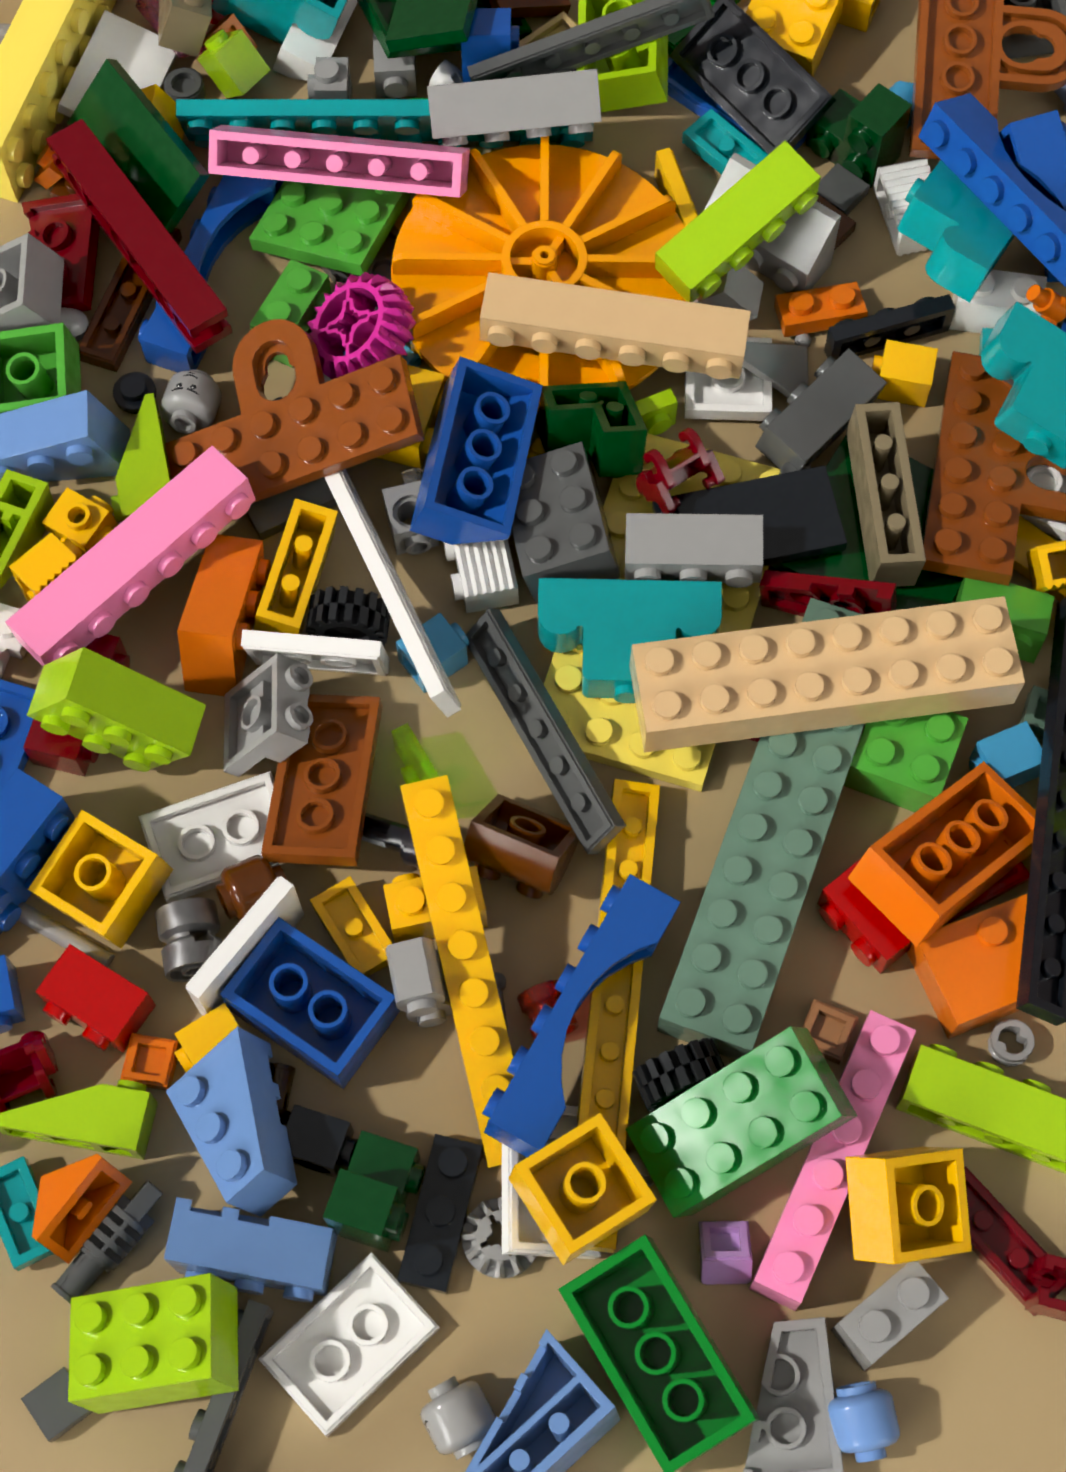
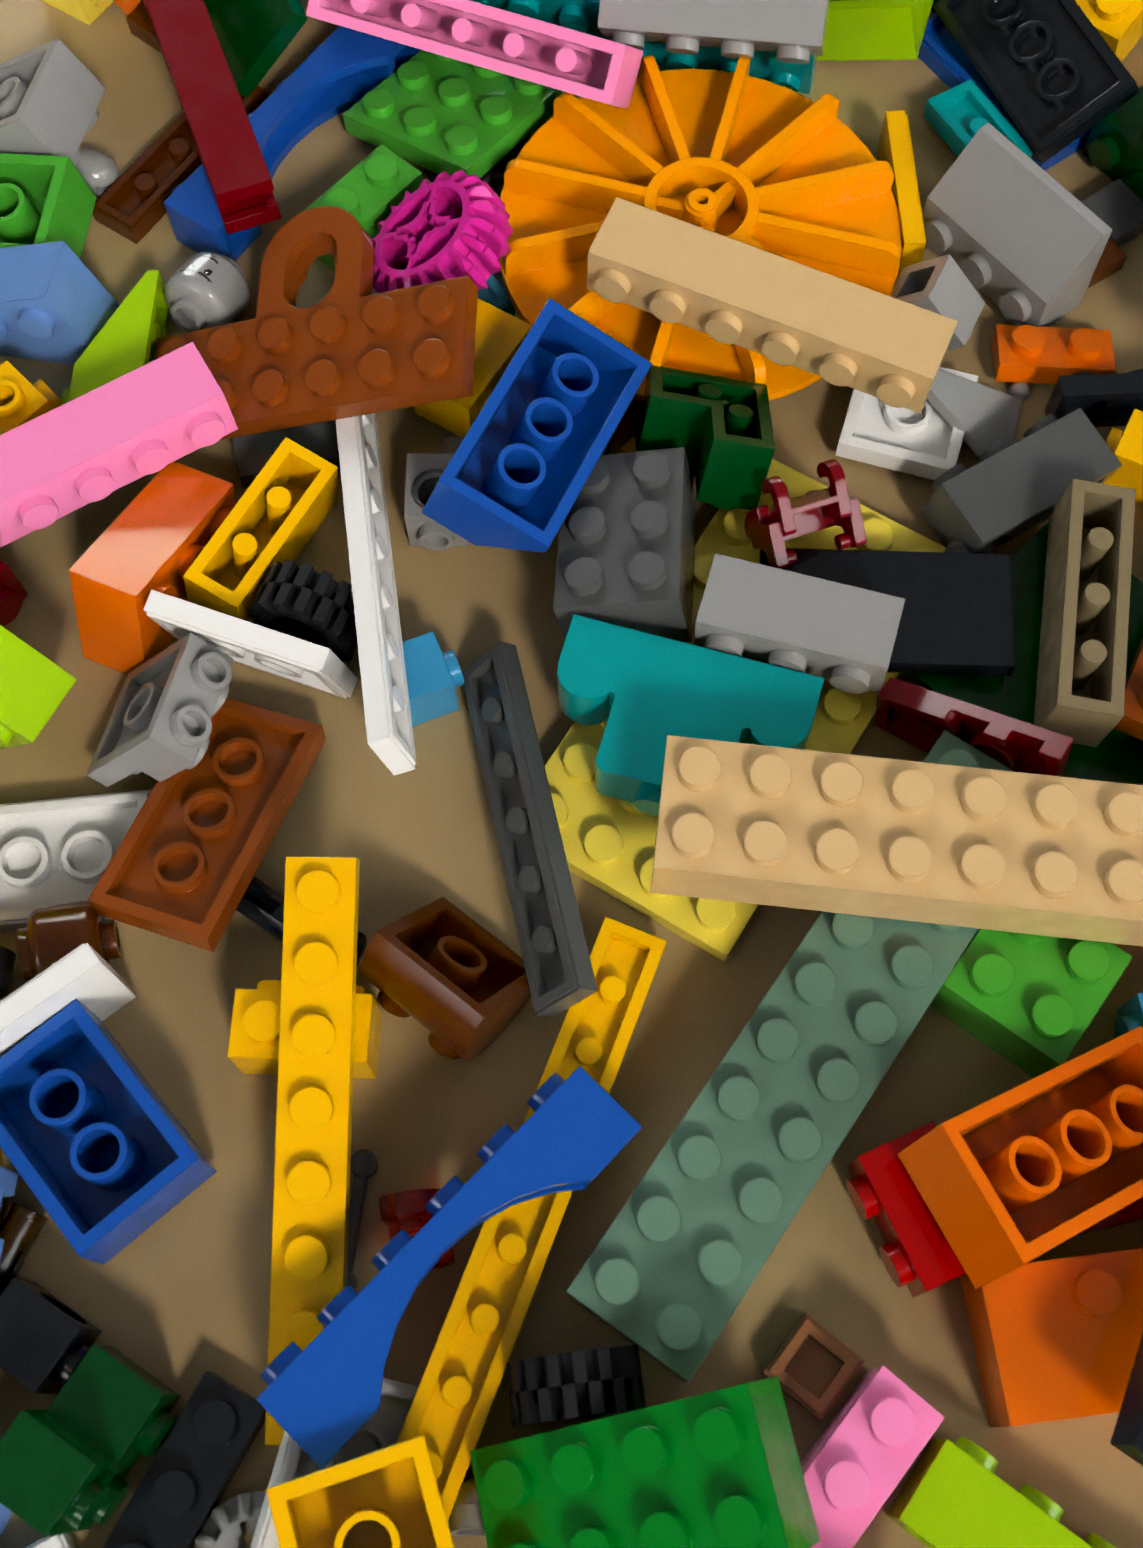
camera: 15 degrees right, 0 degrees up
(72, 233) = (131, 70): dark red wing -> none
(131, 389) = (140, 259): black plate -> none
(352, 926) = (189, 1037): yellow plate -> none
(415, 761) = (345, 834): clear neon green plate -> none
(418, 981) = (236, 1142): light grey brick -> none
(483, 575) = (510, 594): white brick -> none
(658, 411) = (800, 437): lime plate -> none
(738, 223) = (971, 206): lime brick -> none
(998, 1049) = (1104, 1454): light grey bush -> none

